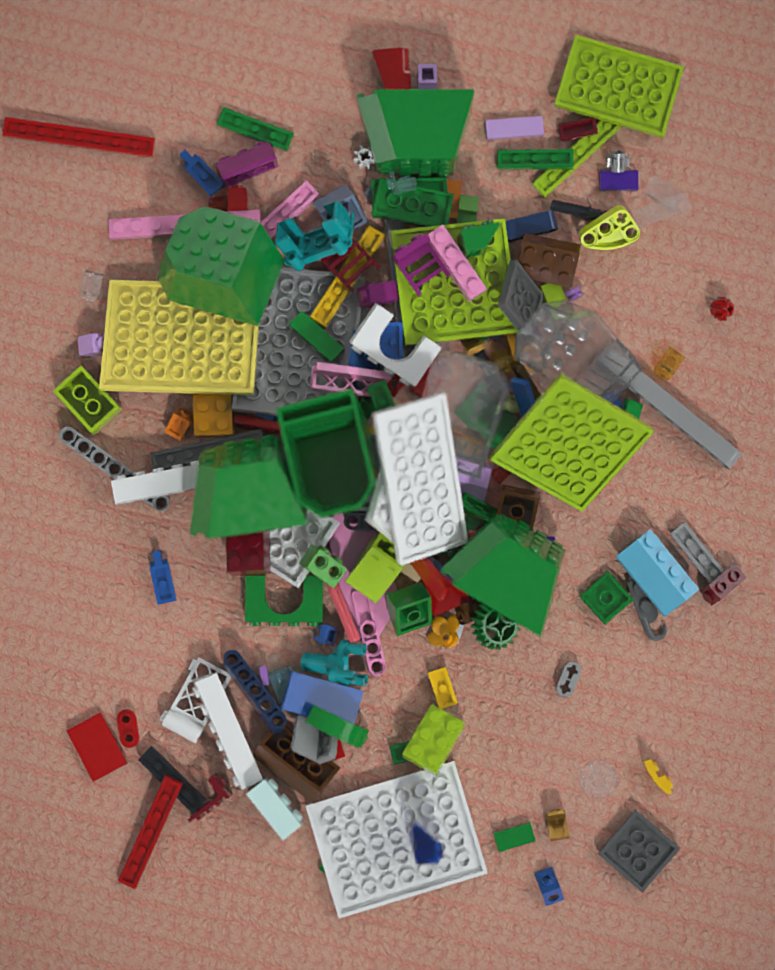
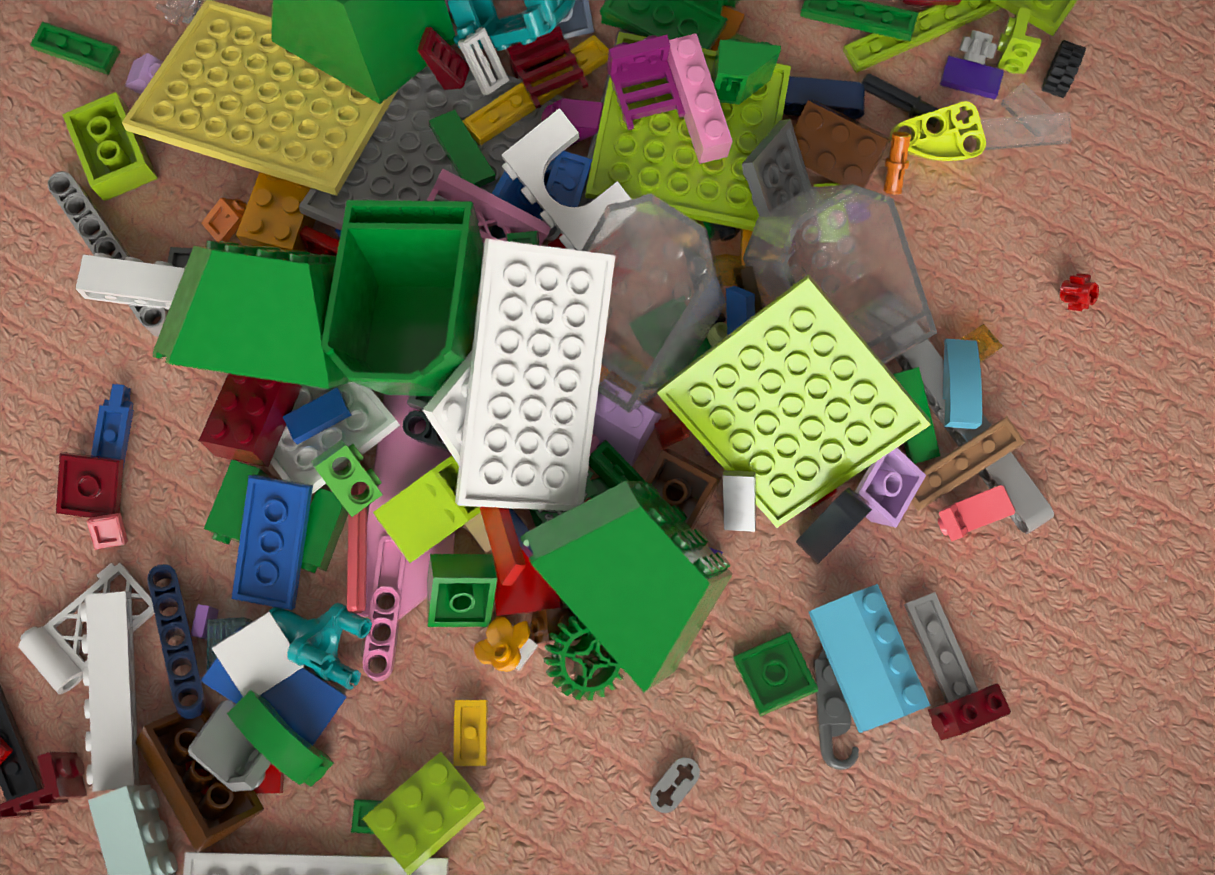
camera: 20 degrees right, 10 degrees down
(31, 337) = (75, 48): none -> green tile
(162, 618) = (89, 485): none -> dark red tile
(184, 641) = (107, 531): none -> coral tile
(285, 281) = (444, 61): none -> dark red slope
(286, 537) = (317, 416): none -> blue tile
(290, 617) = (272, 542): none -> blue tile
(300, 265) = (470, 57): none -> white tile
(308, 684) = (256, 656): none -> white tile
(327, 635) = (322, 590): blue tile -> none
(556, 504) = (739, 500): none -> tile
(588, 259) = (897, 163): none -> orange pin
(615, 503) = (833, 525): none -> black beam
(637, 152) = (1015, 46): none -> lime bracket
(638, 408) = (924, 444): none -> green tile
(641, 470) = (890, 487): none -> lavender slope
(666, 392) = (962, 384): none -> medium azure slope
(674, 162) = (1063, 68): none -> black tyre
(680, 440) = (967, 461): none -> medium nougat tile
(694, 467) = (975, 512): none -> coral bracket

